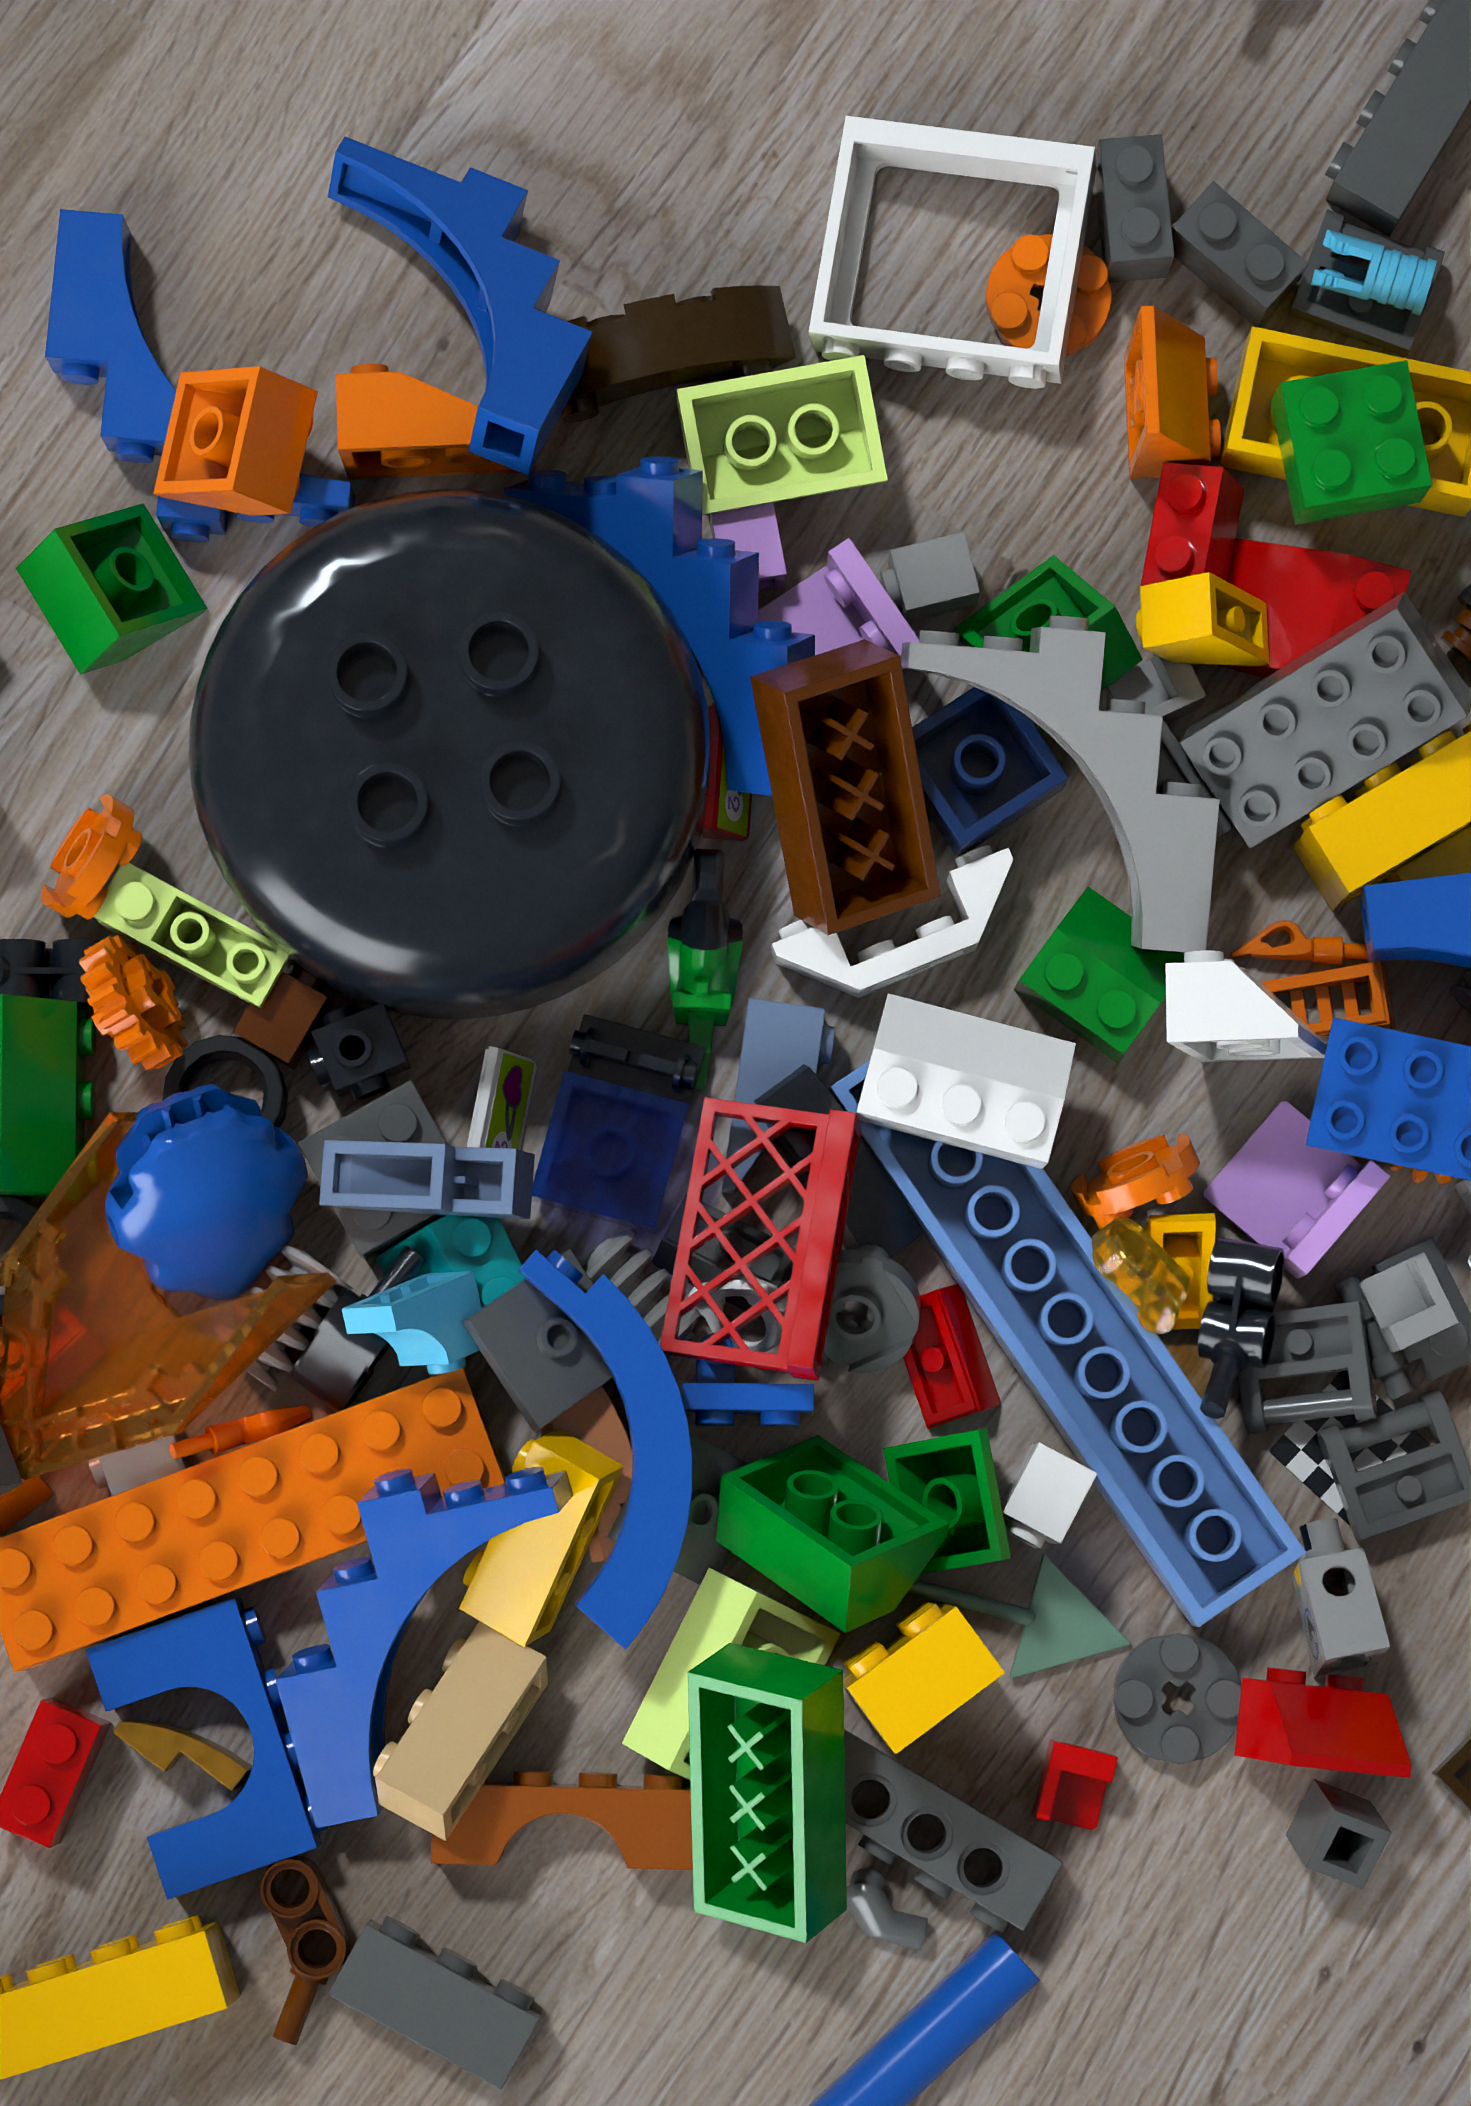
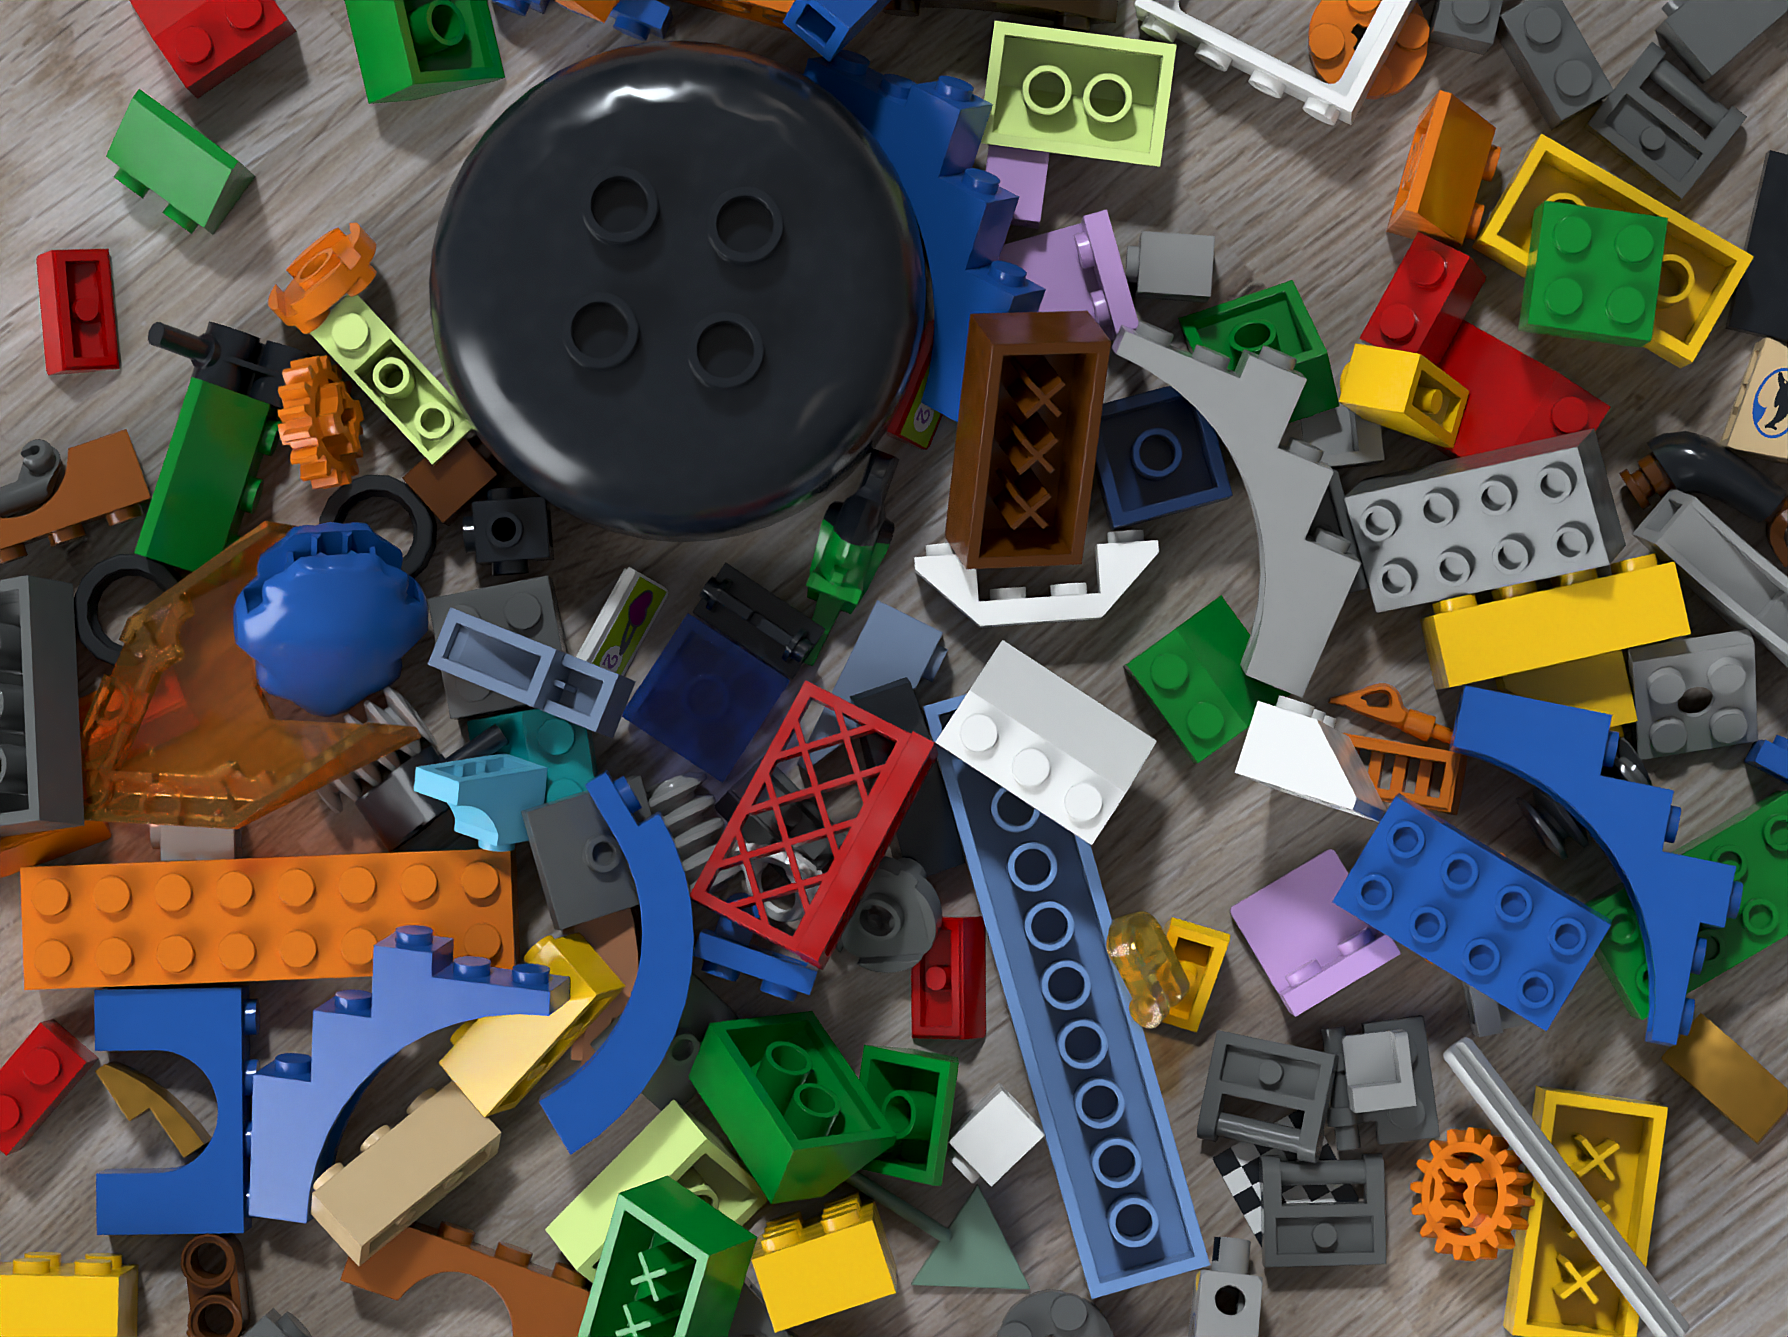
camera: 25 degrees right, 5 degrees up
(242, 1431) = (297, 839): orange hand -> none
(1137, 1176) = (1173, 876): orange plate -> none
(1242, 1322) = (1221, 1041): black beam -> none
(1389, 277) = (1686, 125): medium azure hinge -> none

